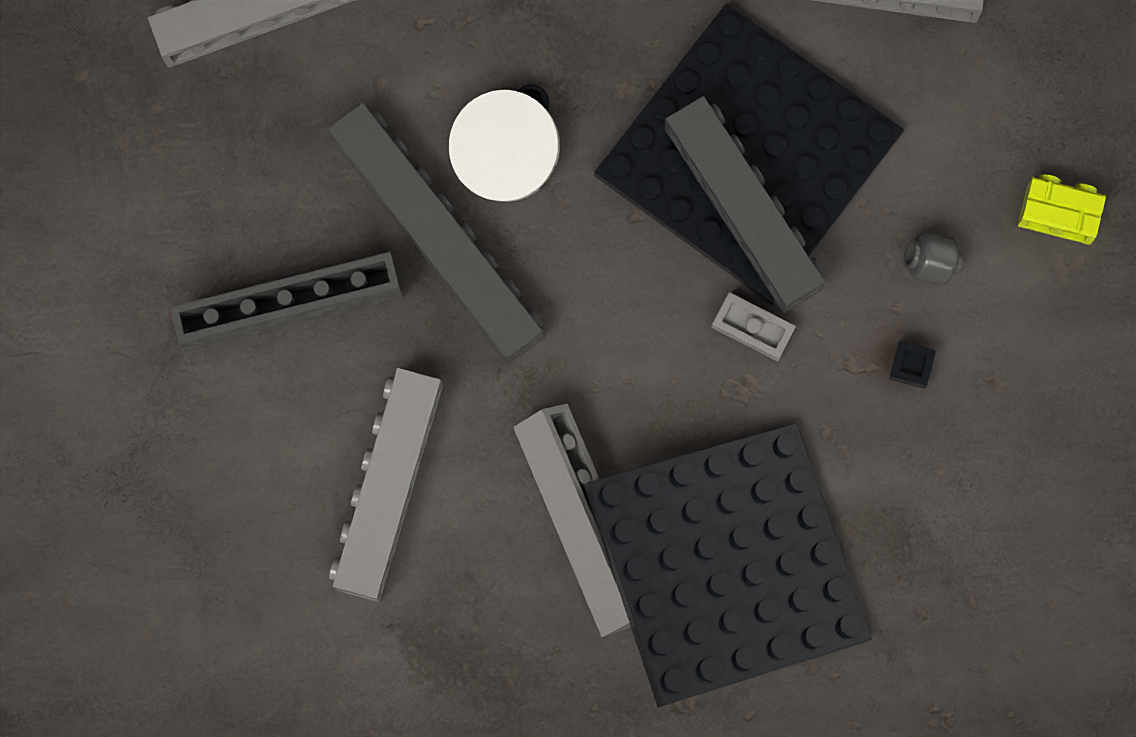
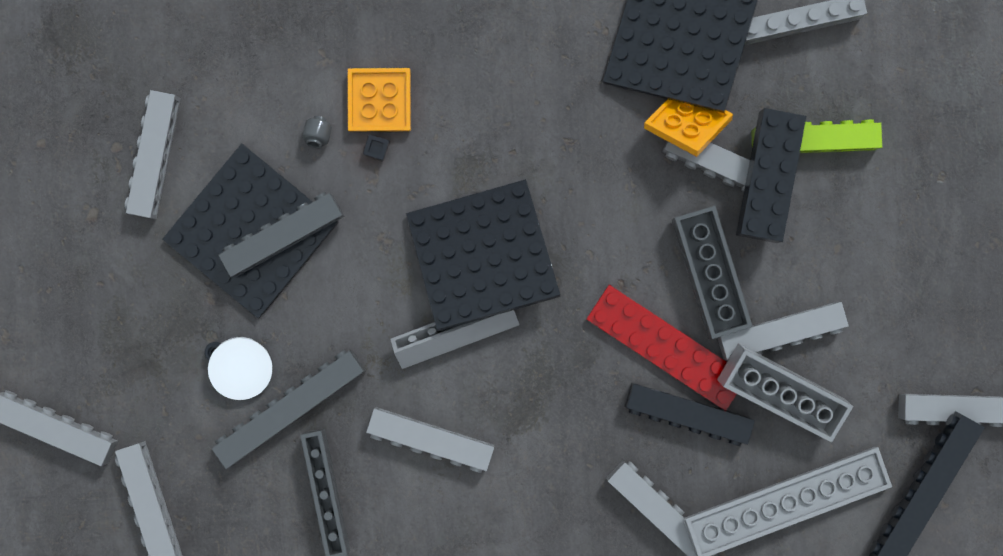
camera: 90 degrees left, 10 degrees up
(753, 326) = (350, 233): light grey plate -> none
(999, 366) = (379, 99): none -> light orange plate
(1062, 209) = (292, 59): neon yellow brick -> none

